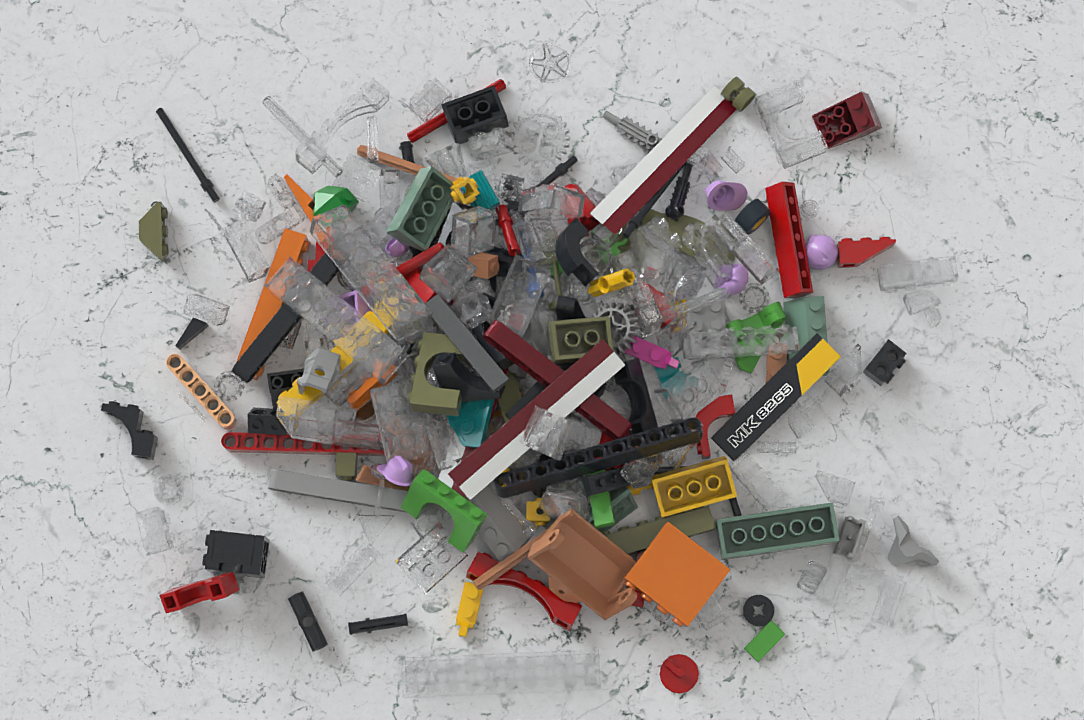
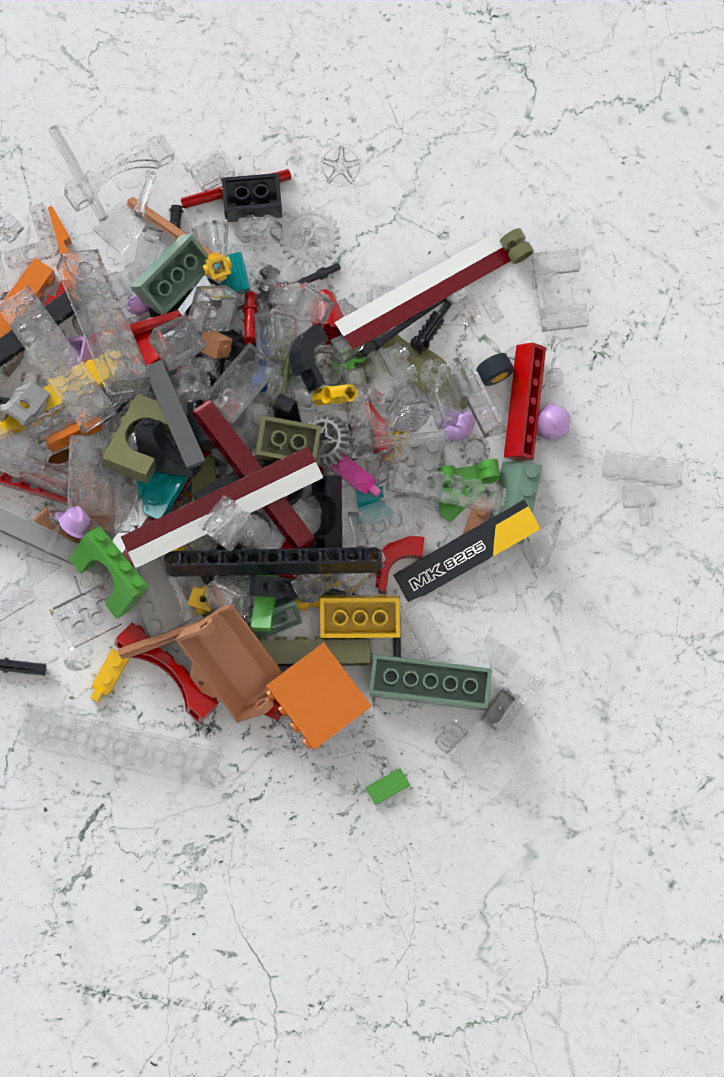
camera: 10 degrees right, 0 degrees up
(333, 197) = (89, 240): green slope -> none
(346, 466) = (28, 504): olive brick -> none
(633, 130) = (404, 254): light grey piece -> none
(679, 673) = (295, 795): red shield -> none
(725, 195) = (475, 342): lavender piece -> none
(768, 610) = (392, 745): black gear -> none
(847, 120) = (617, 300): dark red slope -> none
(858, 252) = (589, 432): red slope -> none
(882, 360) = (581, 544): black brick -> none
(905, 549) = (551, 735): light grey piece -> none

